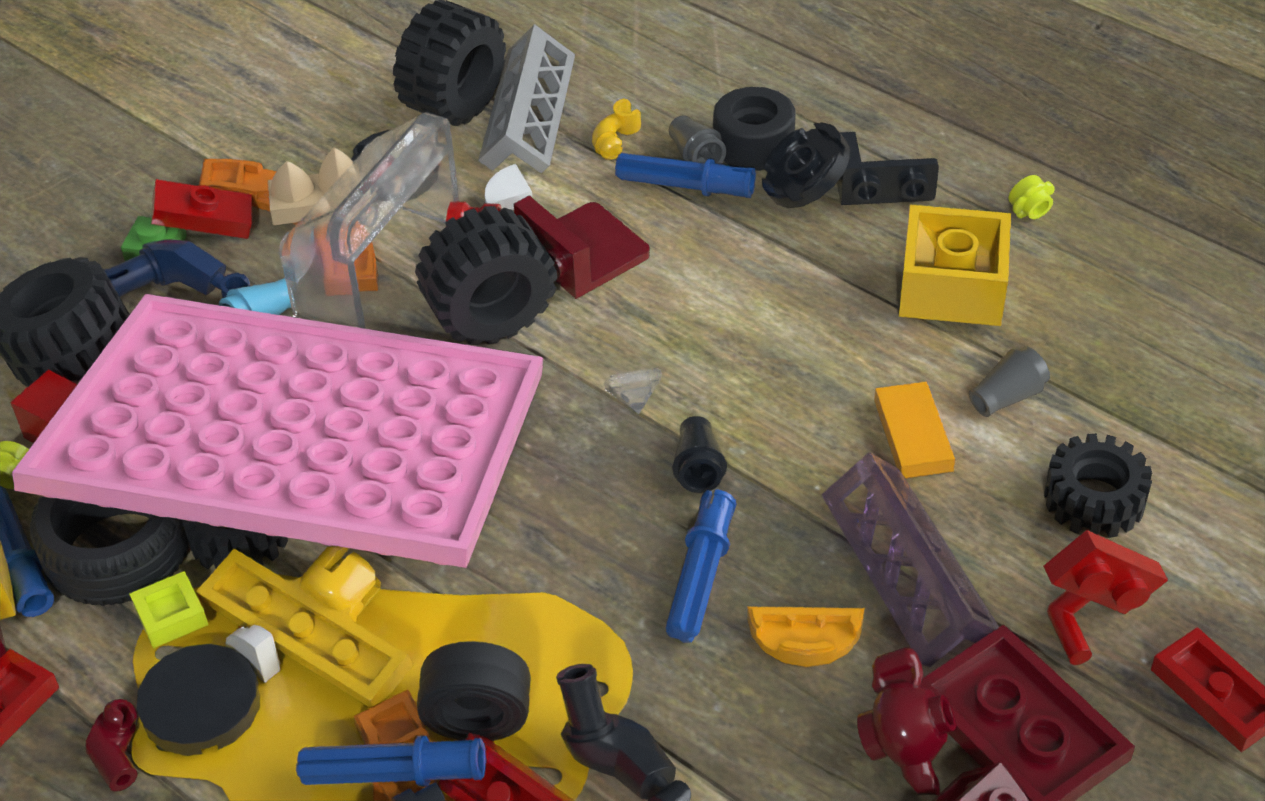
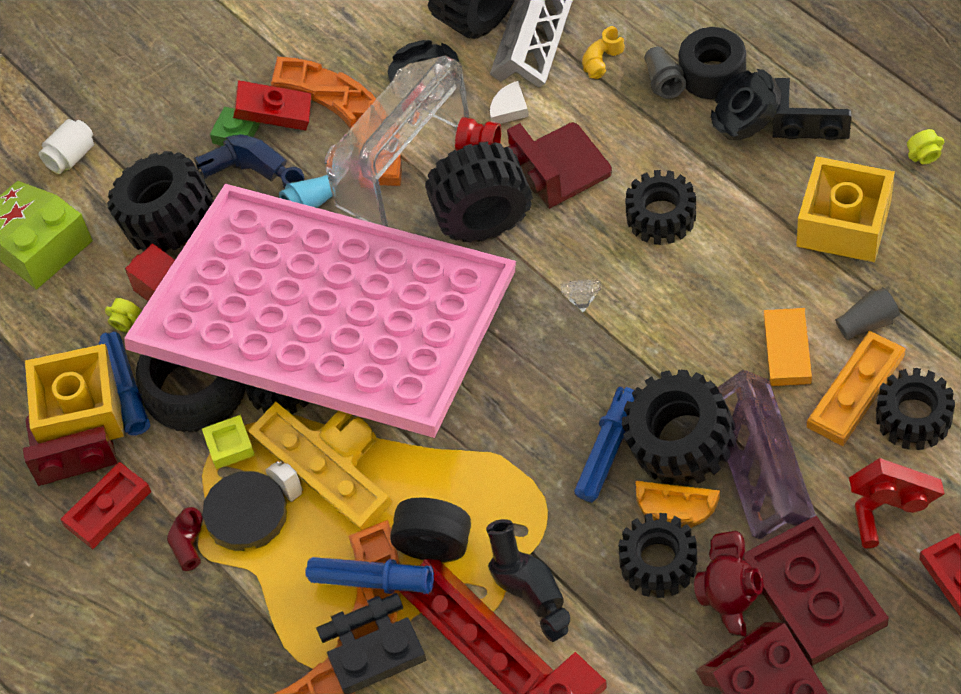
camera: 15 degrees right, 10 degrees up
(295, 192) = (350, 100): tan tile -> none
(685, 174) = (668, 106): blue axle -> none
(698, 458) = (619, 356): black cone -> none
(720, 303) = (660, 189): none -> black tyre
(788, 494) = (661, 403): none -> black tyre
(790, 726) = (652, 533): none -> black tyre
(1012, 471) = (855, 388): none -> light orange tile

